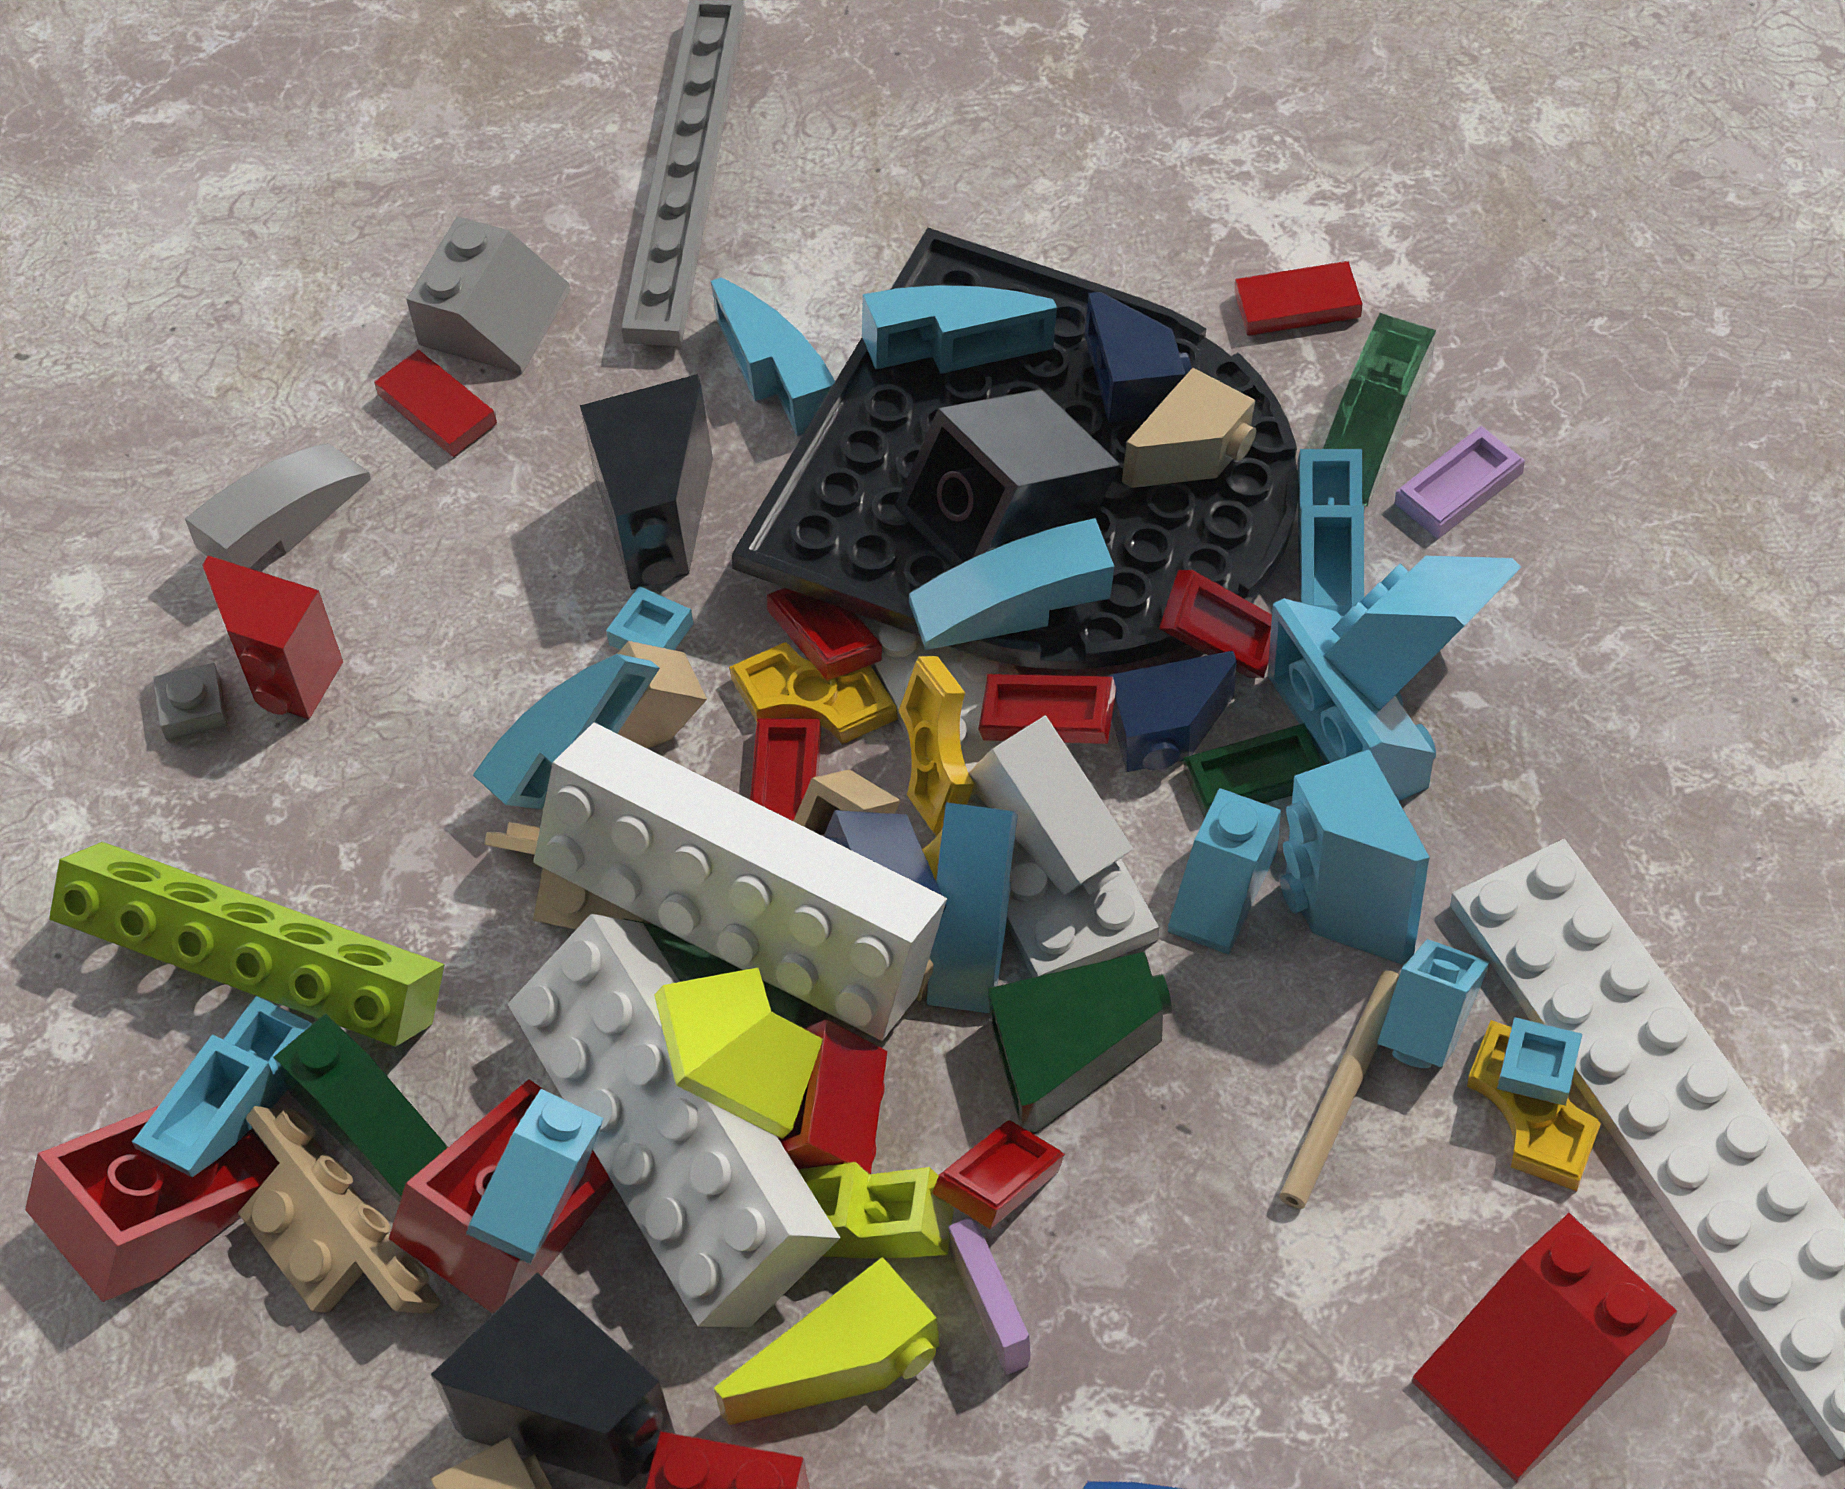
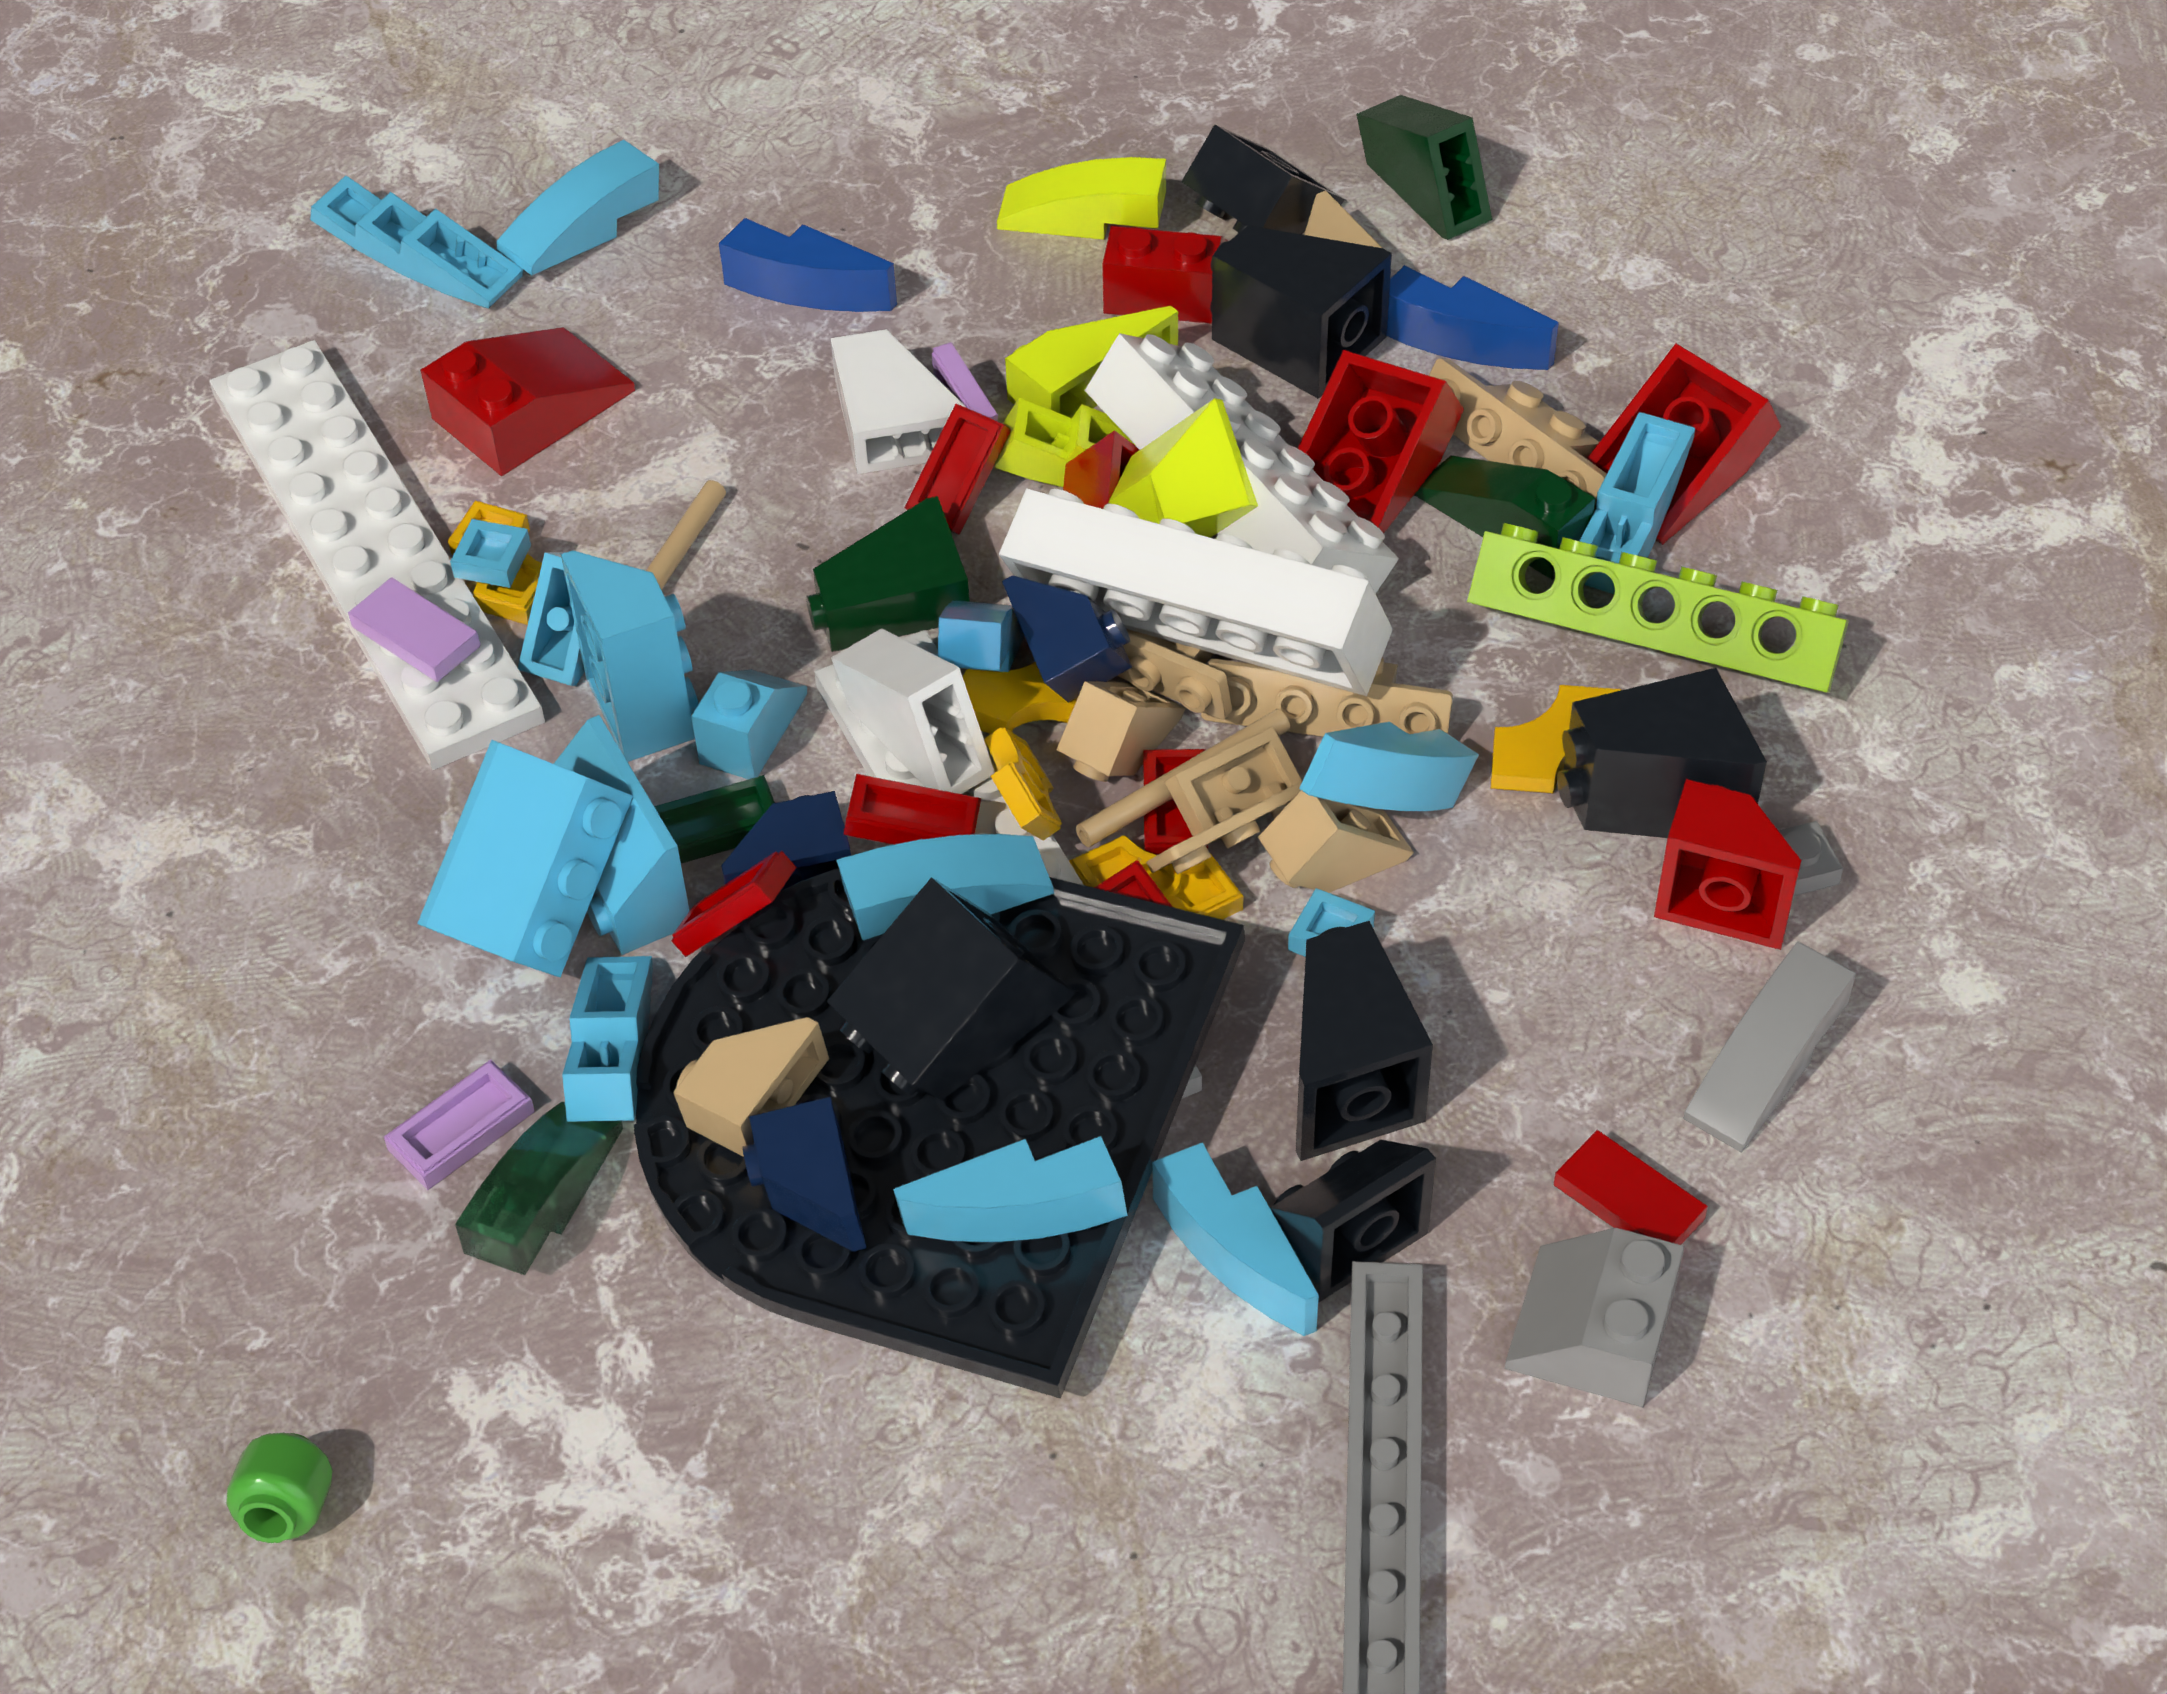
camera: 175 degrees right, 5 degrees down
(295, 746) = (1642, 743): none -> black slope
(359, 1402) = (1468, 323): none -> blue slope
(362, 853) = (1533, 753): none -> yellow tile
(535, 1176) = (1338, 404): medium azure slope -> none
(671, 335) = (1358, 1211): none -> black slope
(735, 716) = (1228, 795): none -> tan bracket
(810, 752) = (1156, 792): none -> tan piece
(1082, 1298) = (888, 401): none -> white slope
(1298, 298) = (609, 1350): red tile -> none
(1546, 187) = (279, 1487): none -> bright green head
(1607, 958) = (414, 629): none -> lavender tile

